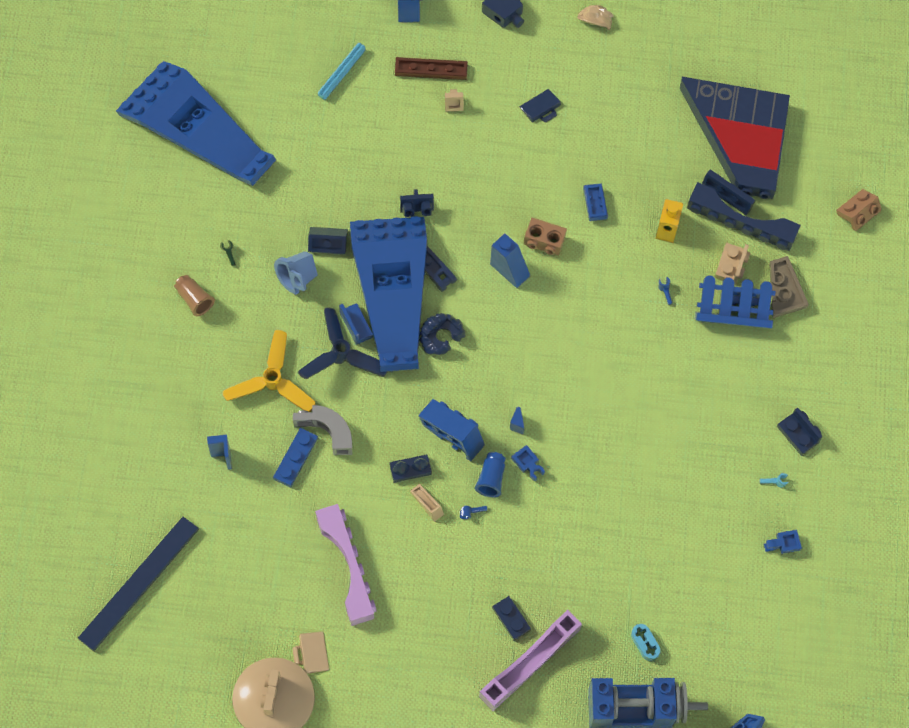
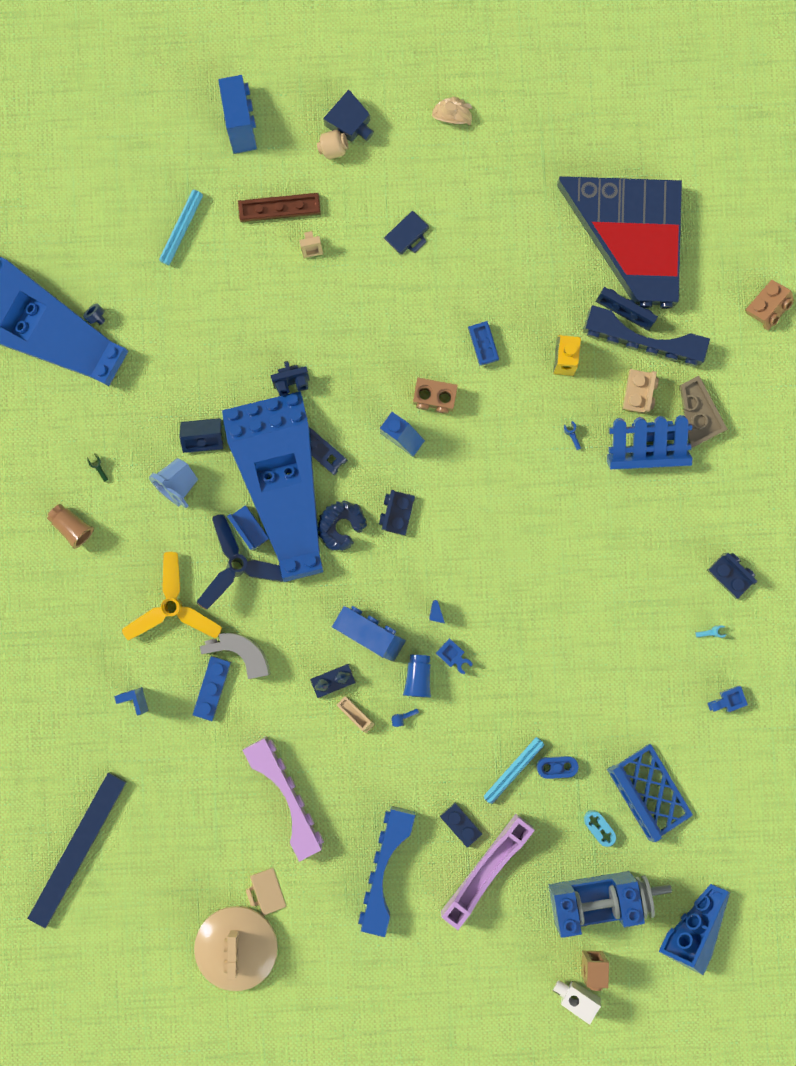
camera: 10 degrees left, 20 degrees up
(252, 126) = (94, 314): none -> dark blue tile
(450, 609) = (377, 913): none -> blue arch
(486, 25) = (332, 144): none -> tan head
(494, 331) = (397, 513): none -> dark blue bracket
(569, 575) = (514, 770): none -> medium azure axle
(611, 577) = (557, 767): none -> blue plate
(682, 618) = (633, 798): none -> blue fence

